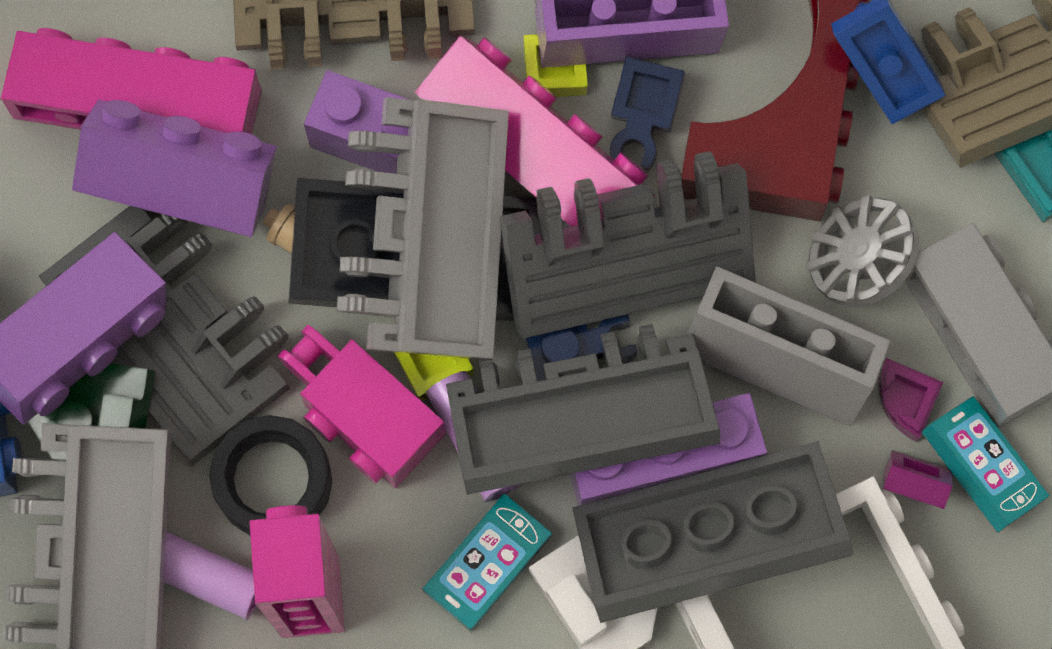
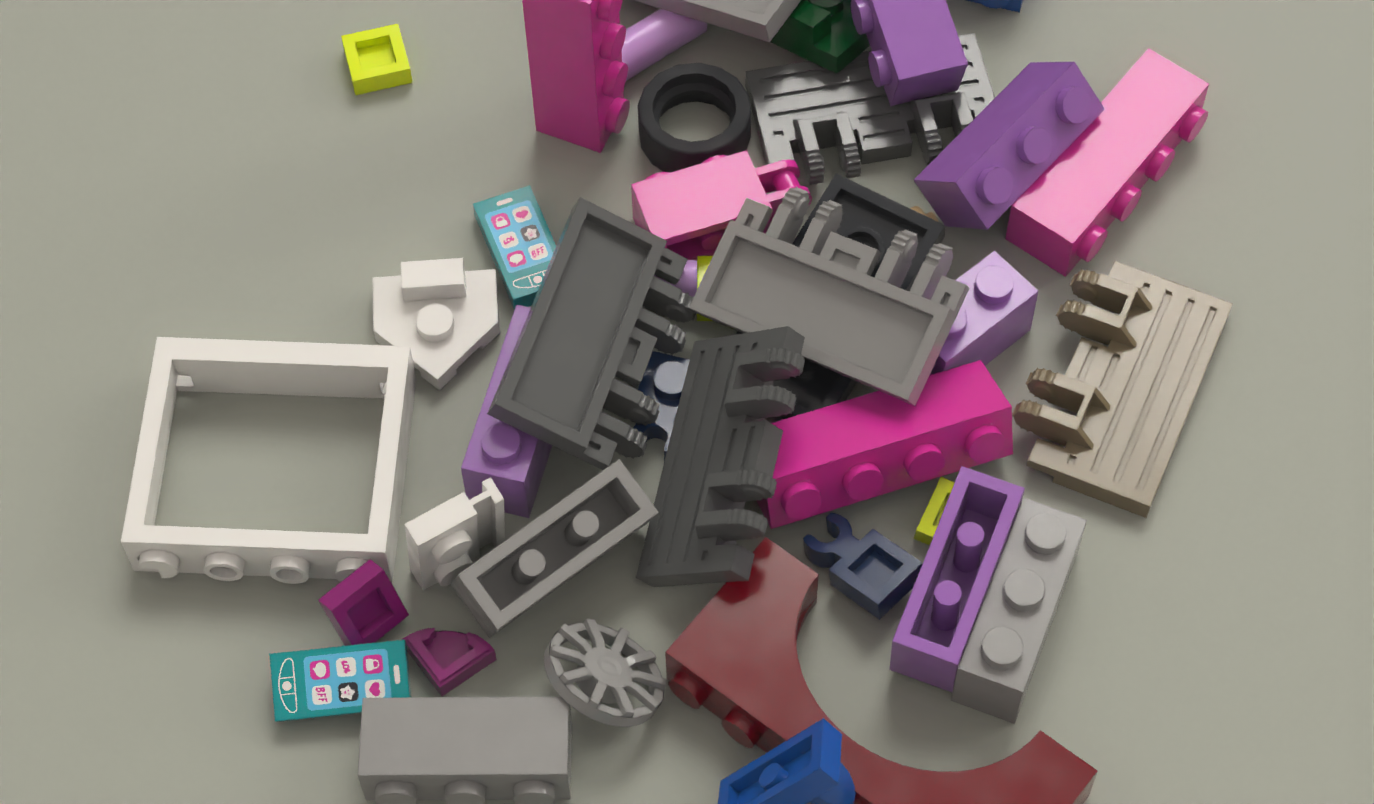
camera: 120 degrees right, 15 degrees down
(711, 531) = (418, 387): dark grey plate -> none
(835, 420) = (451, 534): none -> white plate

